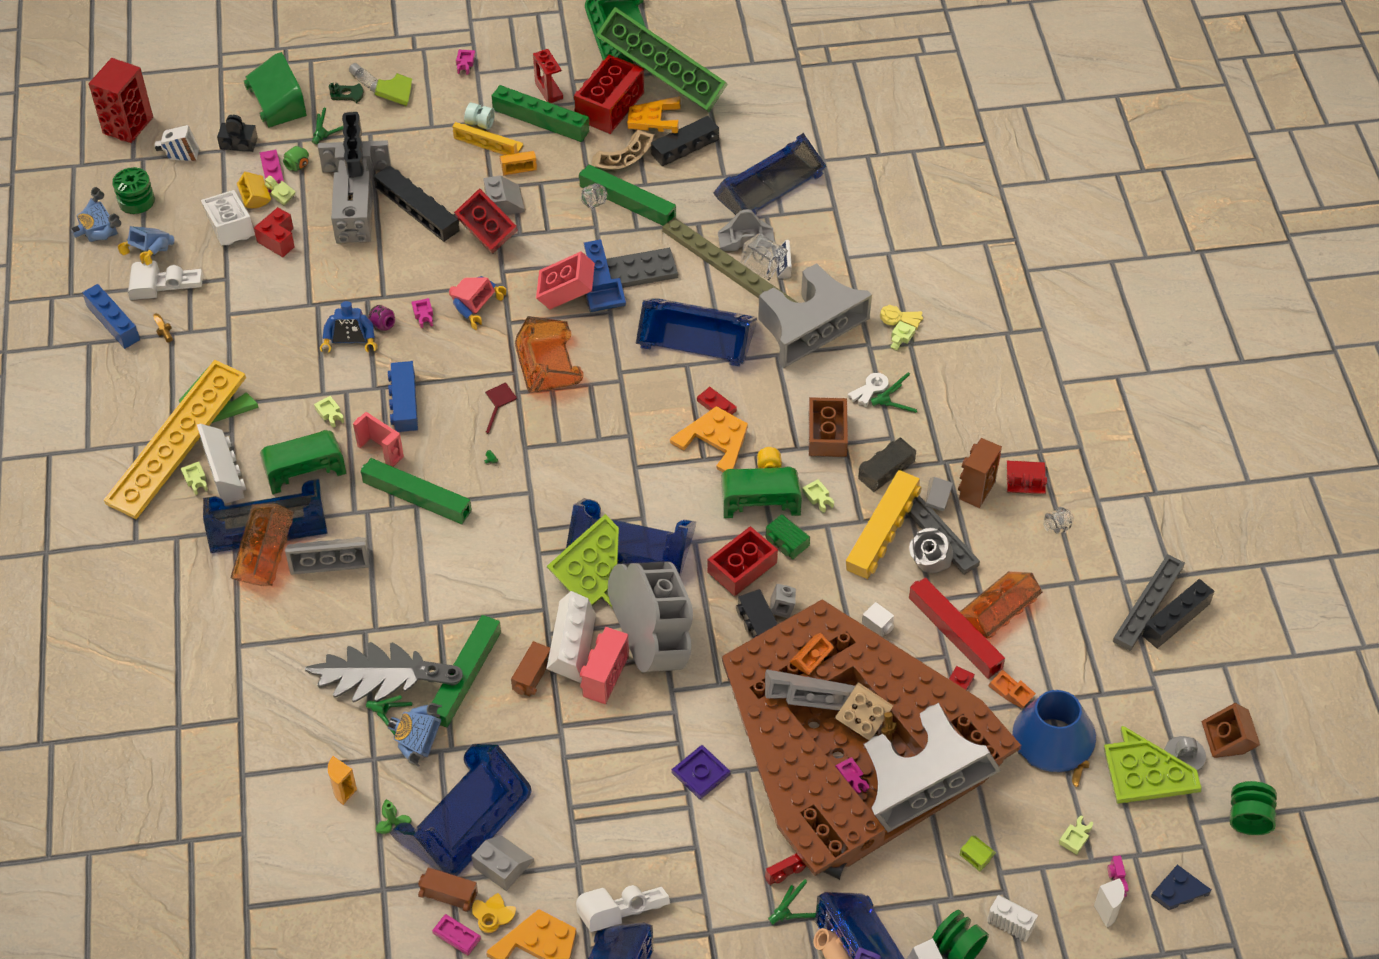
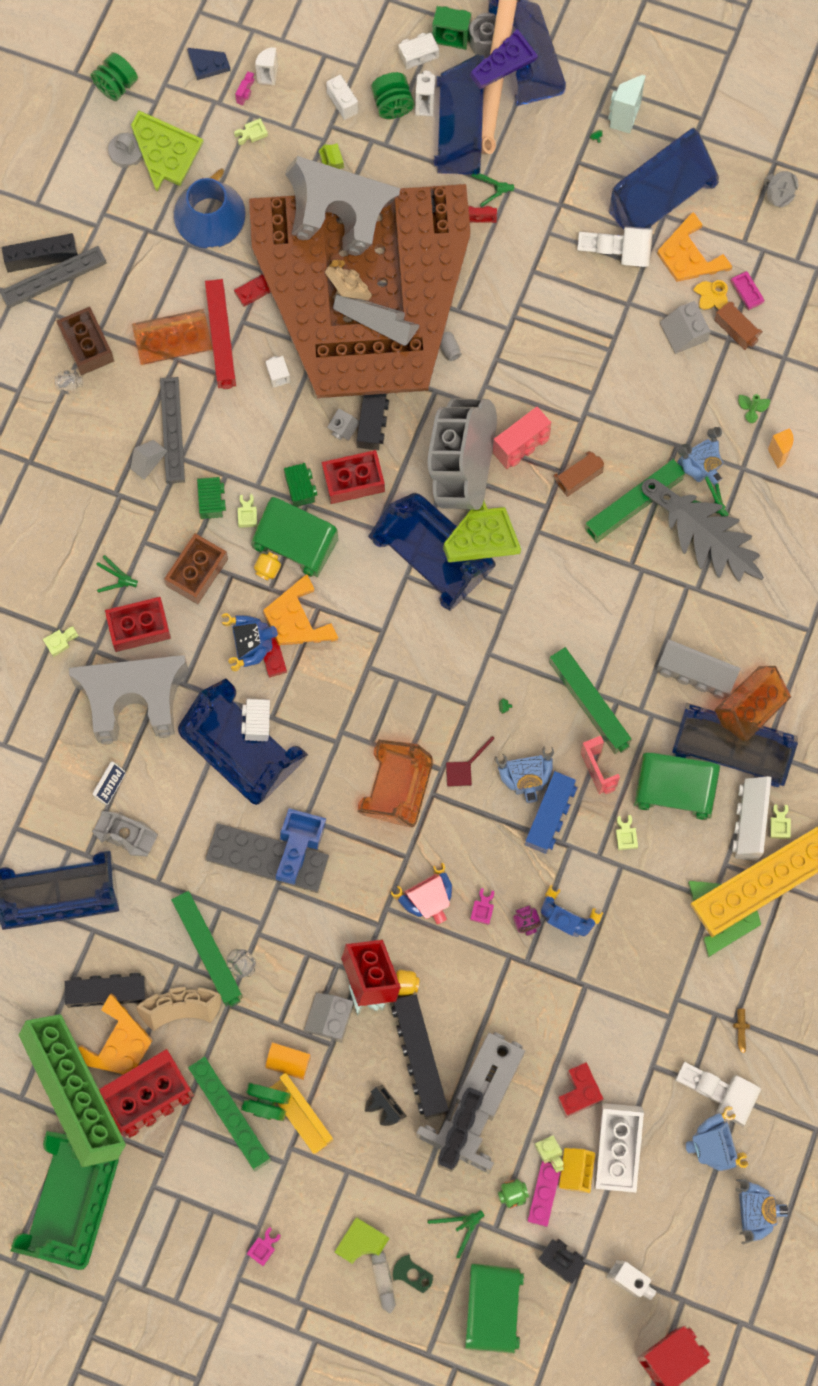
camera: 150 degrees left, 20 degrees up
(111, 316) = (788, 1066): blue brick -> none
(133, 190) = (699, 1242): green wheel -> none
(423, 166) = (380, 1099): none -> black tile
(442, 411) = (526, 774): none -> medium blue torso
(457, 238) = (408, 981): none -> yellow head
(469, 812) = (698, 378): clear blue windscreen -> none
(479, 115) = (297, 1152): light aqua wheel -> none
(516, 122) = (265, 1104): none -> green wheel
(546, 83) = (195, 1153): red window -> none
(565, 280) = (335, 853): coral brick -> none
(572, 636) = (536, 478): white slope -> none
(695, 348) = (257, 719): none -> white brick
(701, 772) = (494, 324): dark purple tile -> none
(718, 258) = (161, 803): olive plate -> none
(730, 724) = (450, 347): none -> light grey piece
(741, 397) = (251, 639): none -> torso
(762, 255) = (126, 792): clear slope -> none
(812, 654) = (359, 347): orange slope -> none
(845, 366) = (137, 624): none -> red brick
(853, 775) = (389, 250): dark pink plate -> none
(859, 490) = (210, 497): none -> green brick
(874, 384) = (121, 597): white piece -> none
(883, 524) = (215, 448): yellow brick -> none
(886, 463) = (169, 510): clear smoke brick -> none
(892, 315) = (53, 664): light yellow piece -> none
(931, 550) = (195, 400): light grey brick -> none
(979, 472) = (106, 442): dark orange brick -> none
(1012, 691) = (213, 263): orange slope -> none
(1026, 477) = (61, 439): red hinge -> none
(1071, 556) = (85, 341): none -> reddish brown brick
(1230, 732) = (79, 144): dark orange slope -> none

